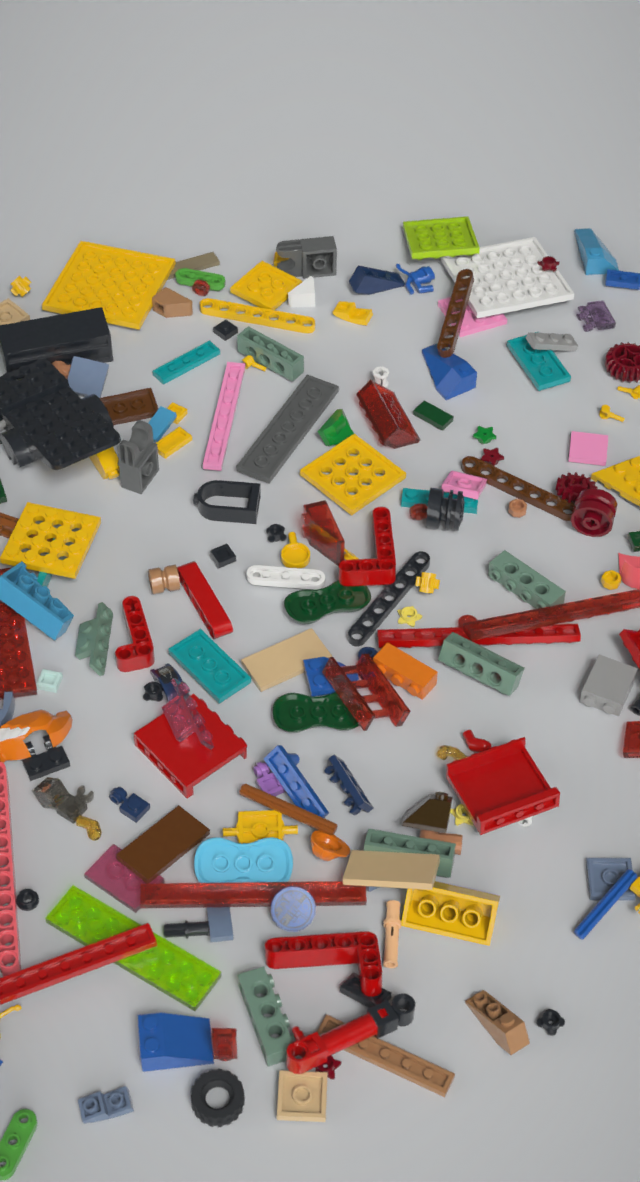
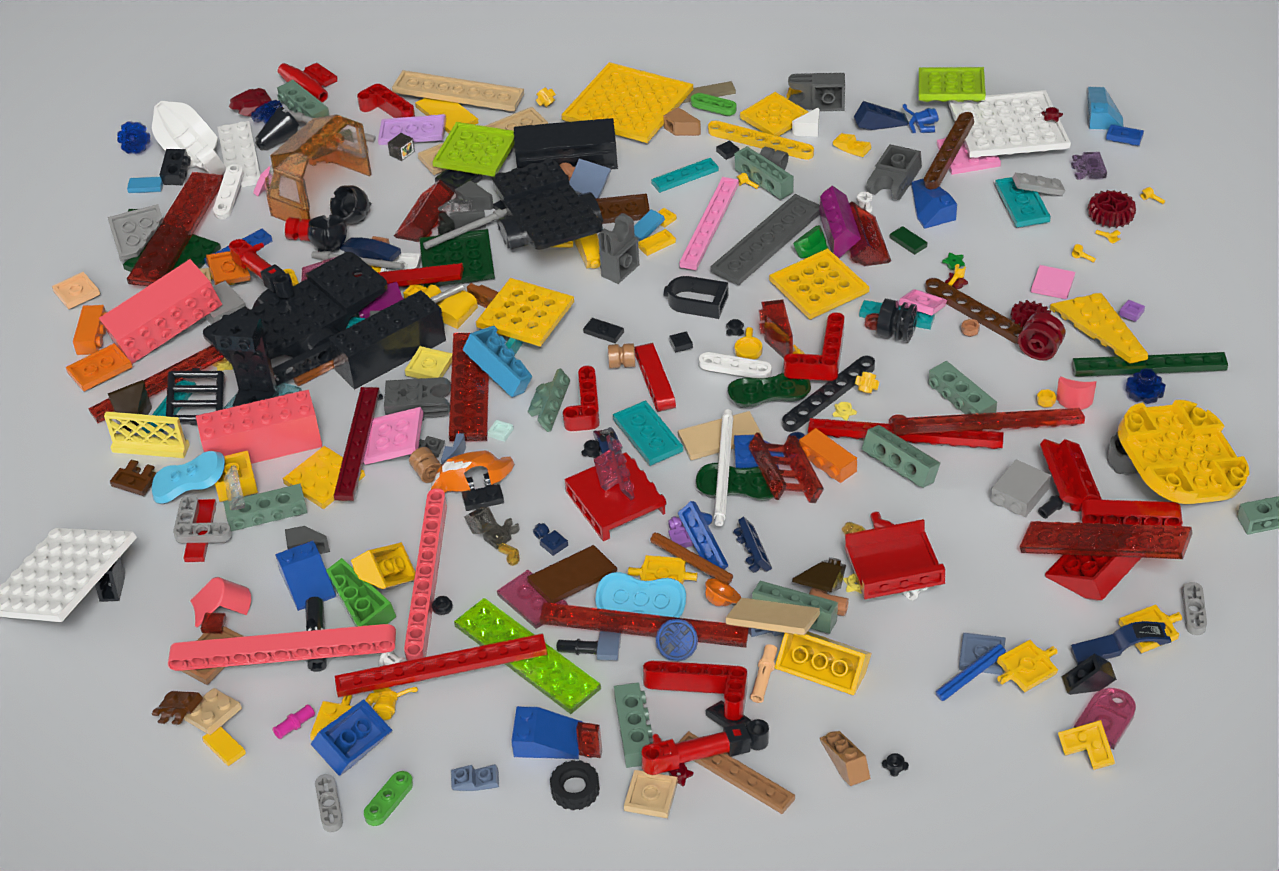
camera: 15 degrees right, 5 degrees down
(137, 550) = (603, 330): none -> black plate
(201, 287) = (712, 111): clear red tile -> none
(282, 335) = (778, 157): none -> dark grey wheel
(300, 700) = (723, 468): none -> white piece
(360, 403) = (838, 221): none -> magenta slope
(405, 339) = (895, 171): none -> dark grey brick
(493, 448) = (958, 273): none -> yellow hand

